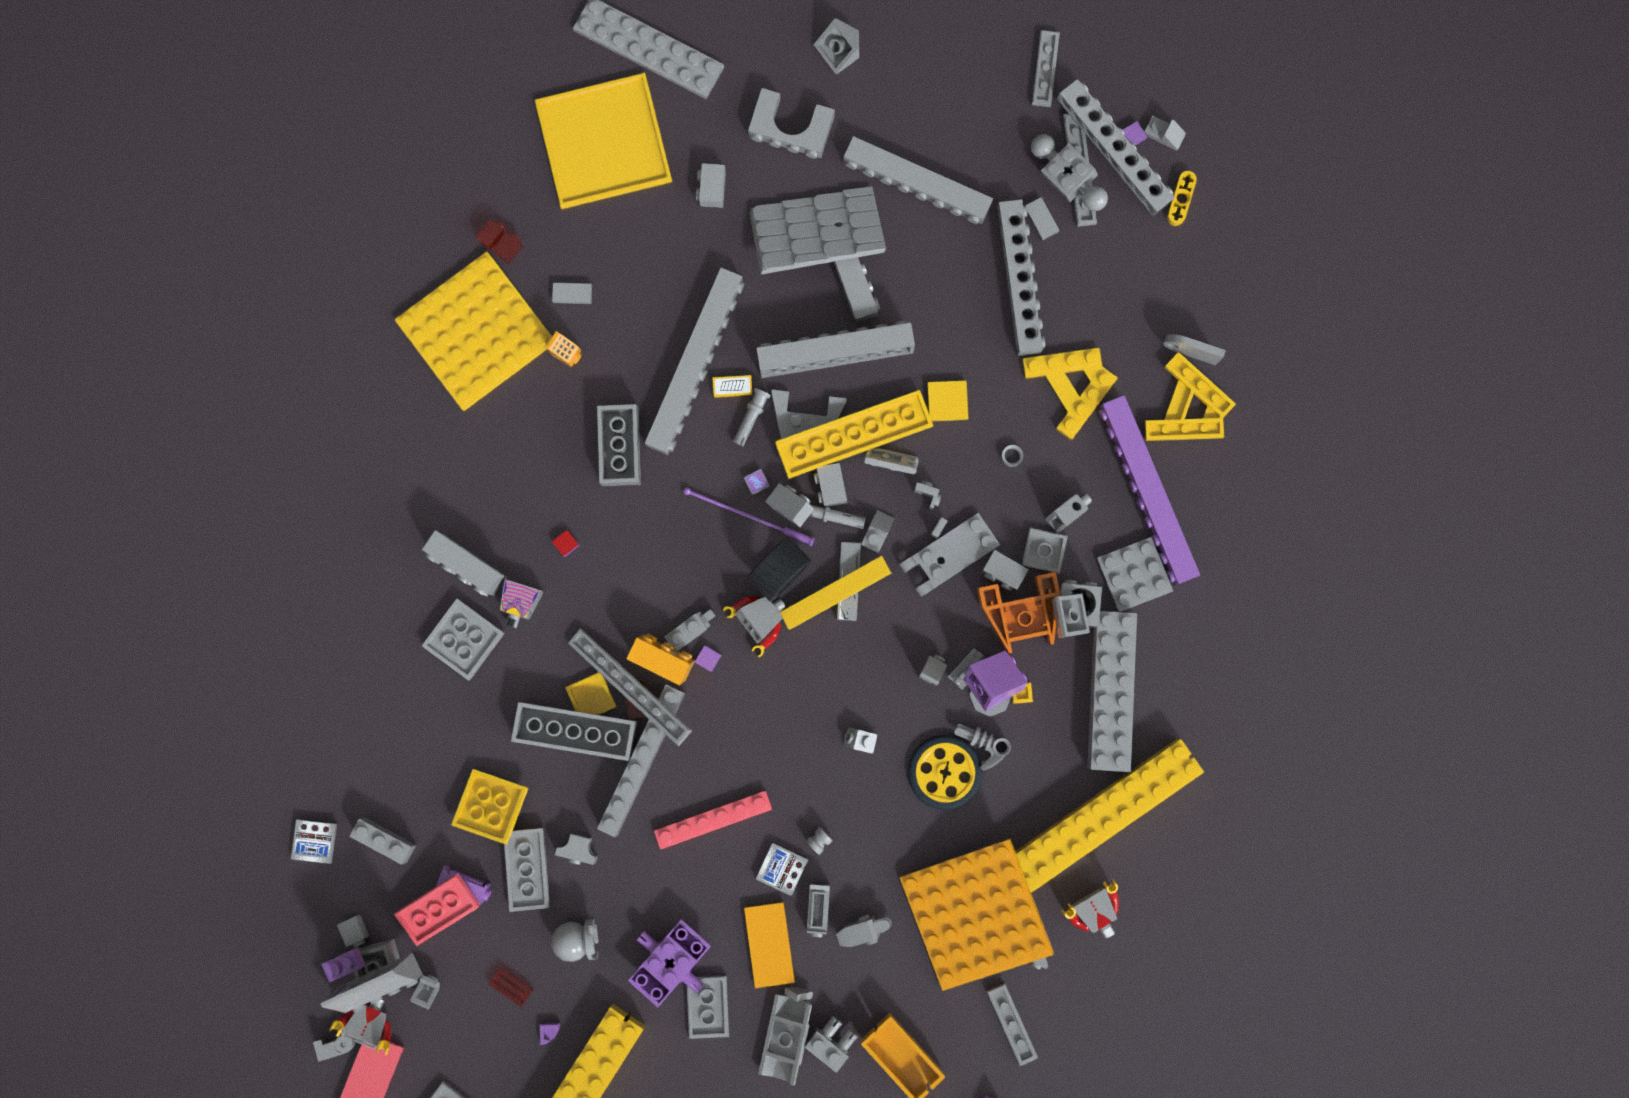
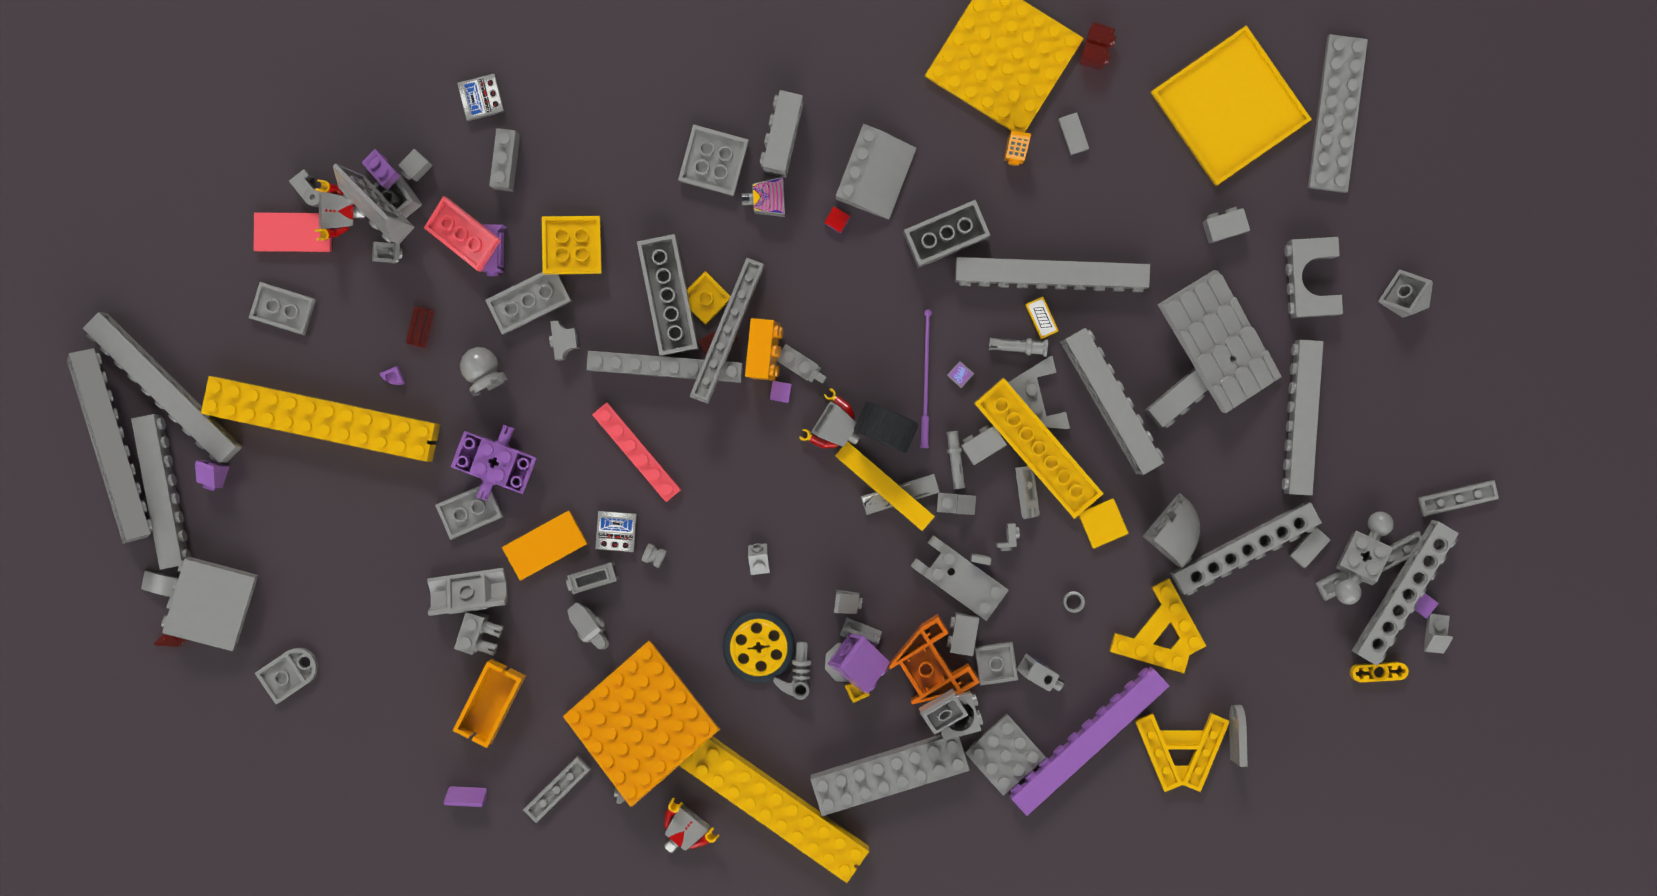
camera: 60 degrees right, 5 degrees up
(535, 490) = (875, 172): none -> light grey slope
(789, 504) = (950, 413): light grey brick -> none
(798, 994) = (511, 587): light grey tile -> none
(981, 335) = (1176, 531): none -> light grey brick

